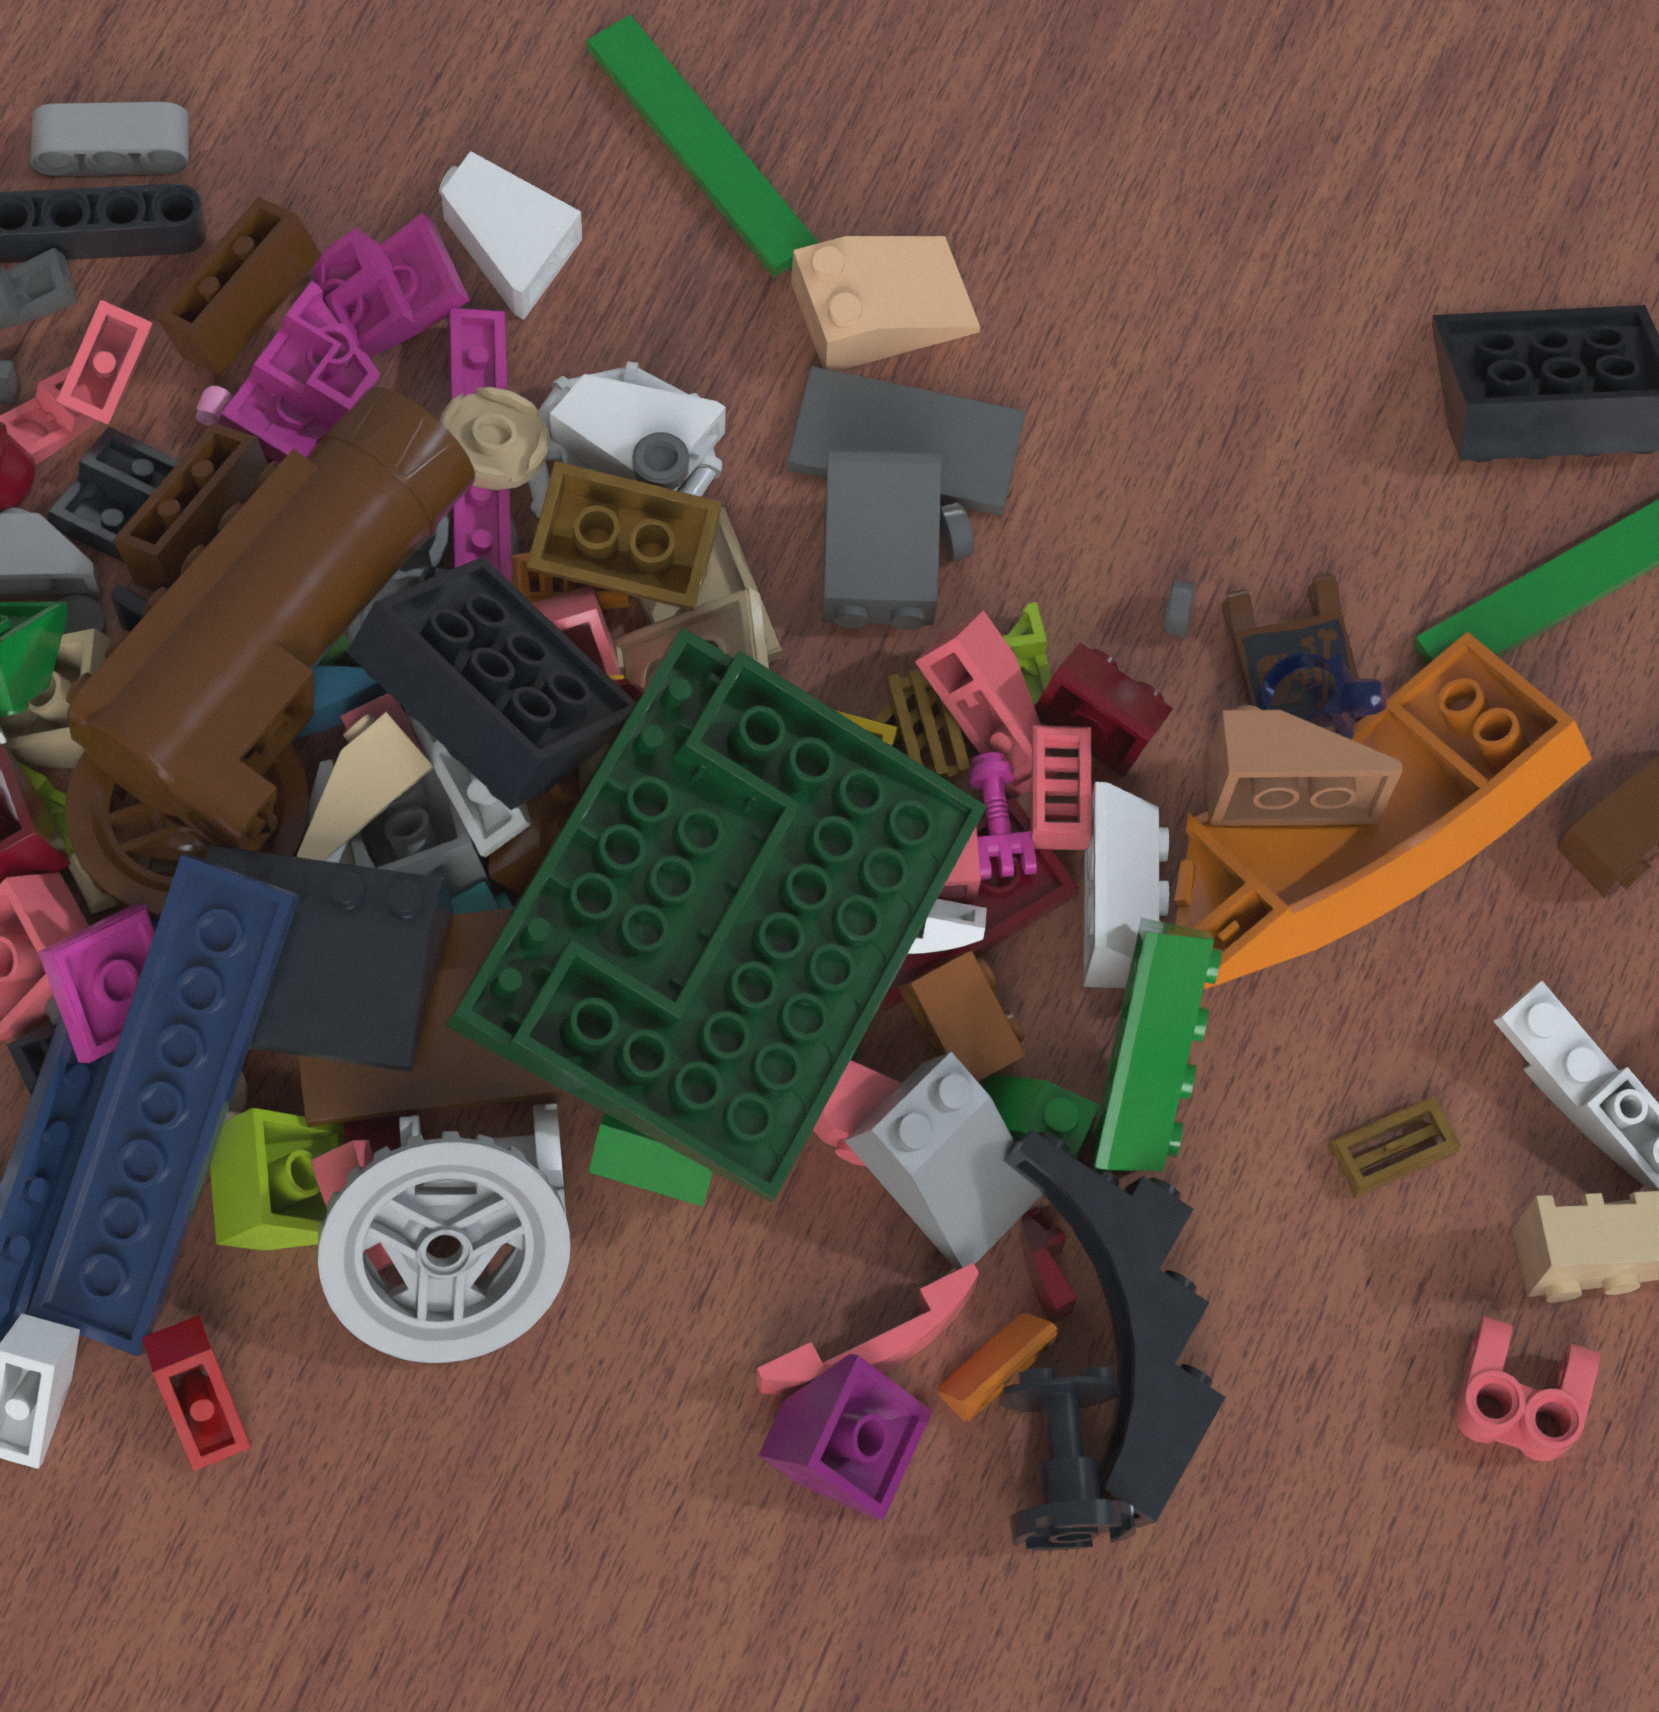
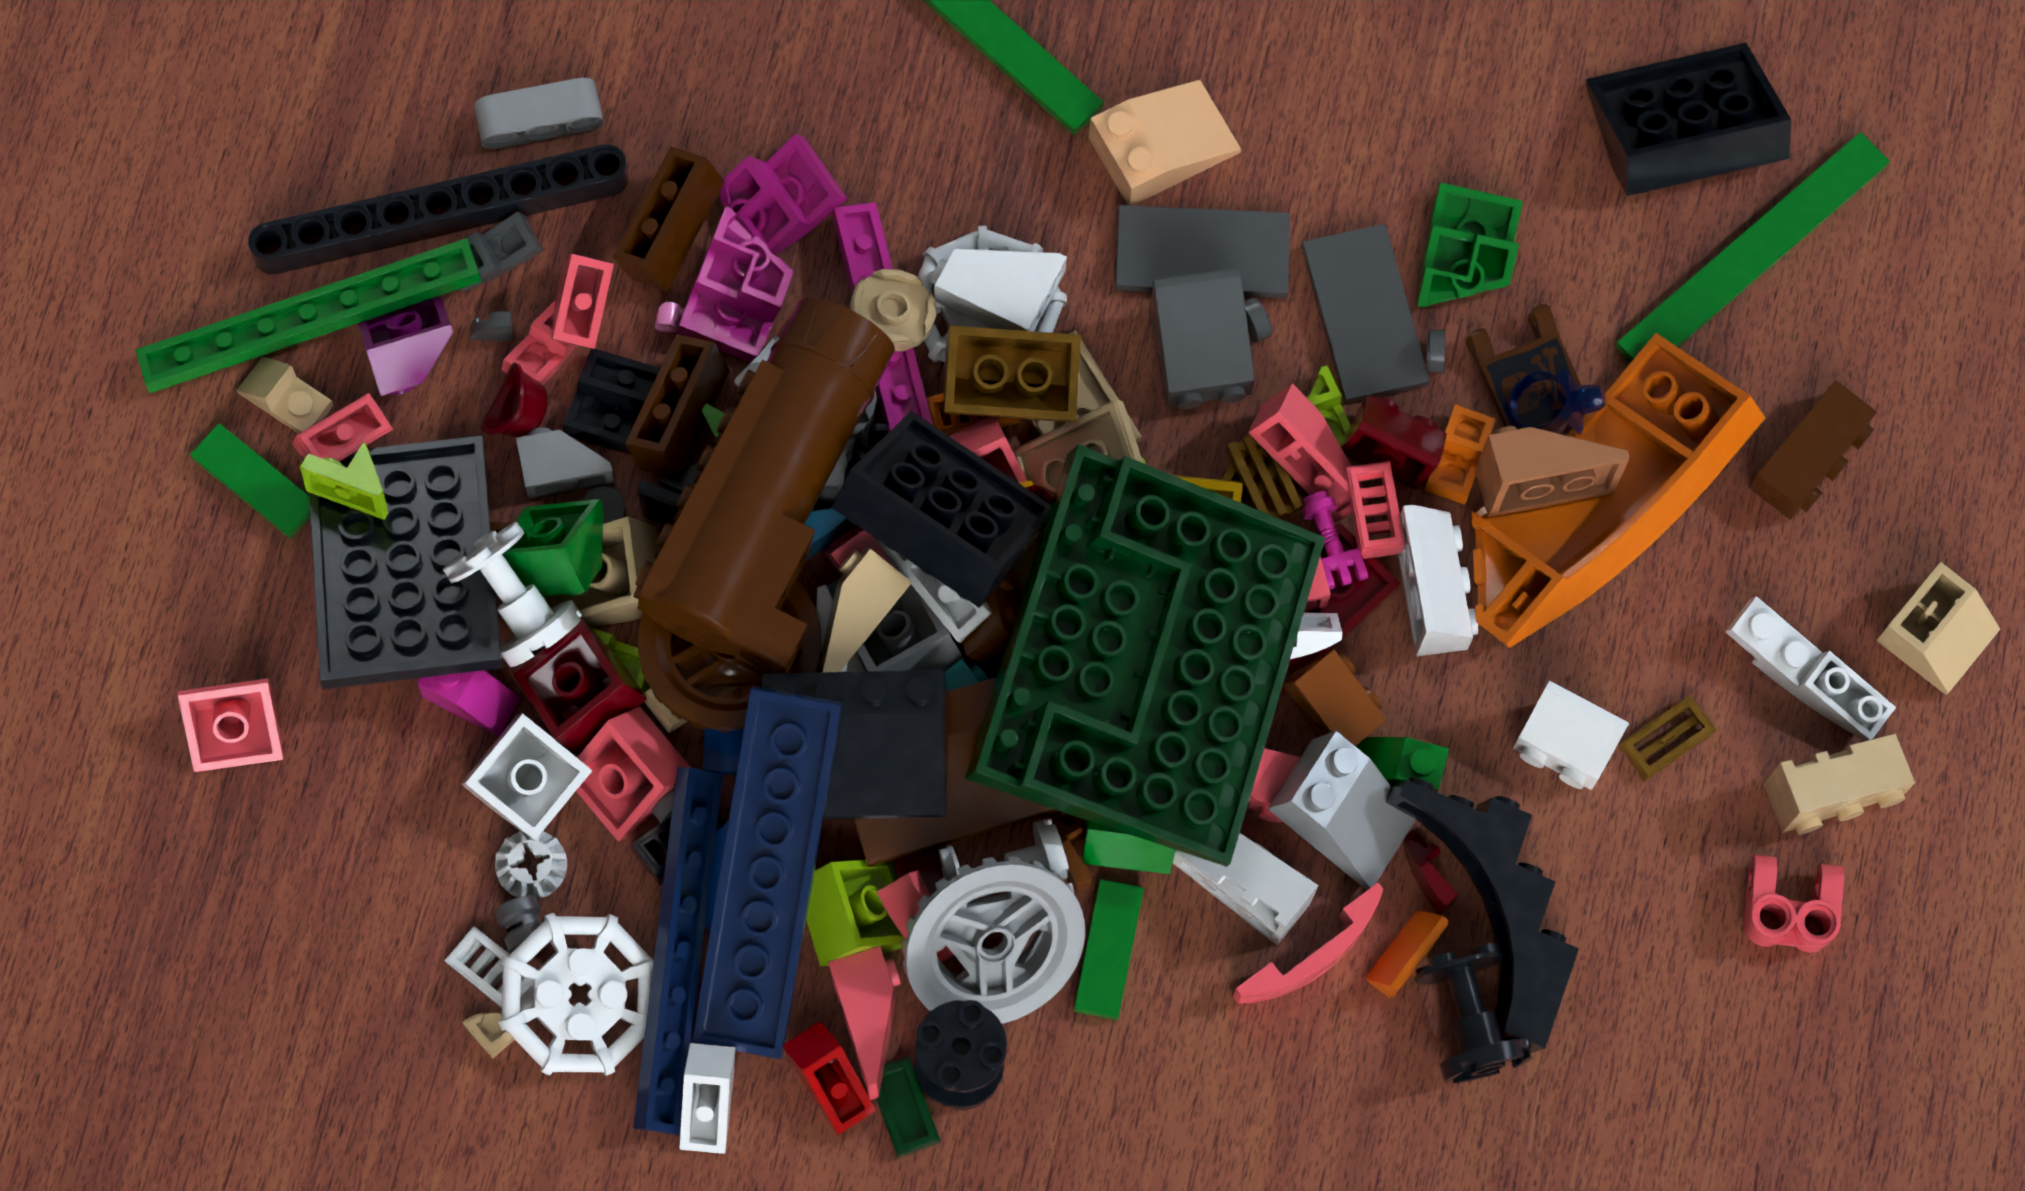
camera: 10 degrees left, 5 degrees up
(97, 978) = (700, 786): dark pink tile -> none
(267, 1308) = (867, 1001): none -> coral slope
(287, 1450) = (905, 1110): none -> dark green tile
(369, 1389) = (960, 1054): none -> black piece
(509, 229) = (863, 134): white slope -> none
(578, 1134) = (1070, 835): none -> dark orange slope
(603, 1292) = (1108, 949): none -> green tile
(661, 460) = (1028, 309): dark grey tile -> none
(809, 1240) = (1254, 887): none -> white wedge
(848, 1436) = (1309, 1025): magenta slope -> none
(1098, 549) = (1365, 313): none -> dark grey tile
(1153, 1047) = (1480, 698): green slope -> none
(1178, 753) = (1461, 452): none -> orange slope
(1246, 486) = (1467, 244): none -> green slope
(1264, 1118) = (1570, 736): none -> white slope

